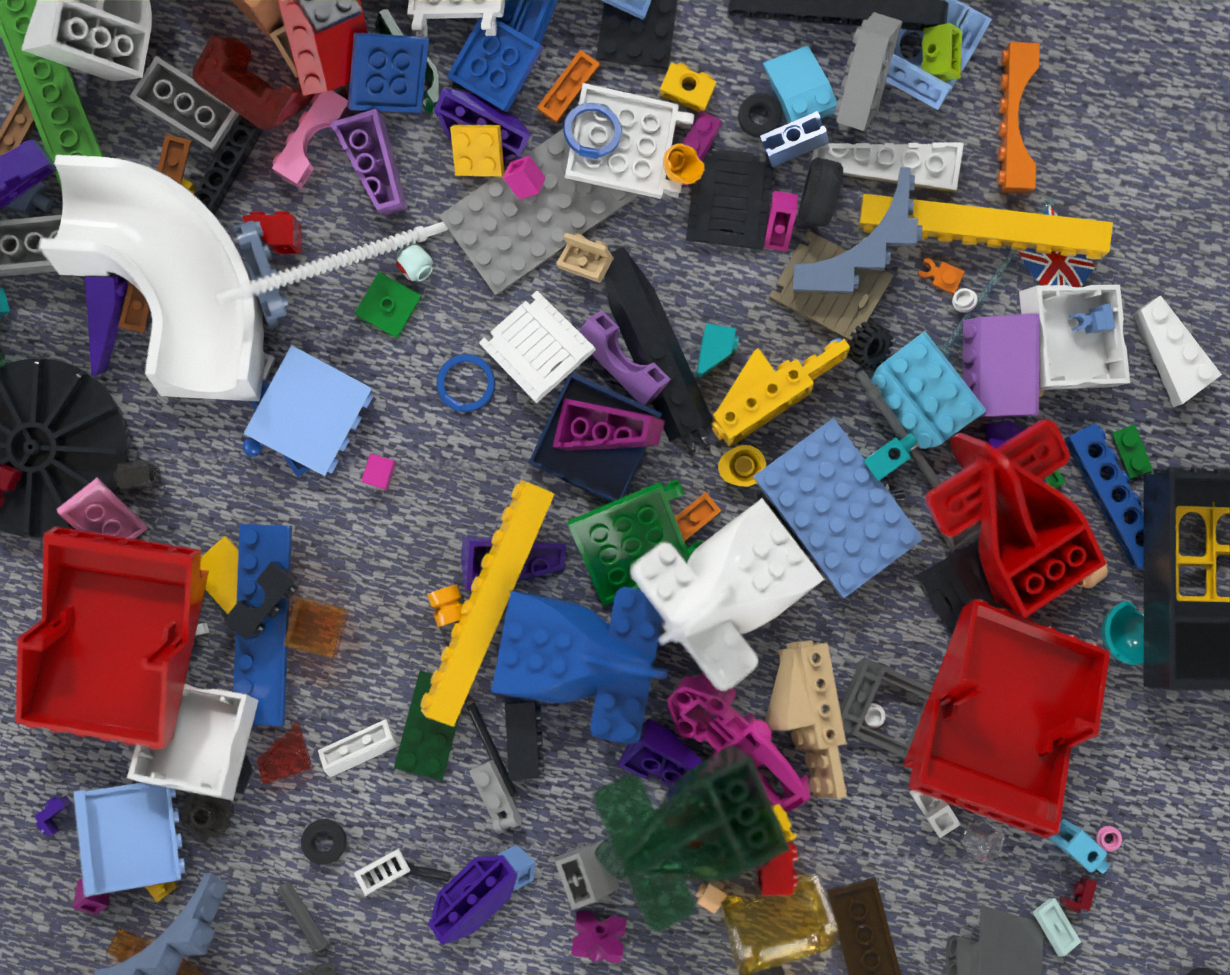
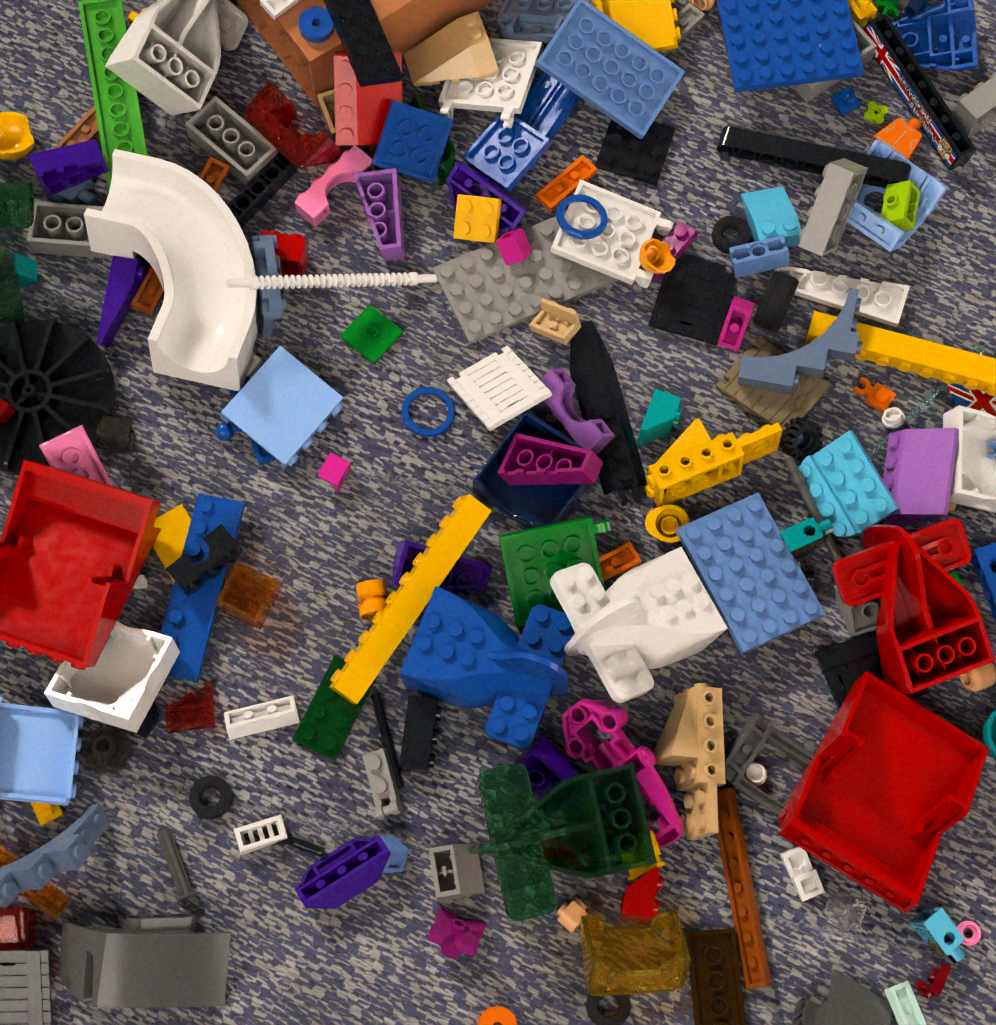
camera: 10 degrees right, 15 degrees down
(414, 263) = (402, 302): light aqua head -> none
(695, 99) = (674, 211): yellow brick -> none
(877, 841) = (741, 892): none -> dark orange plate
(1017, 166) = (956, 313): orange arch -> none

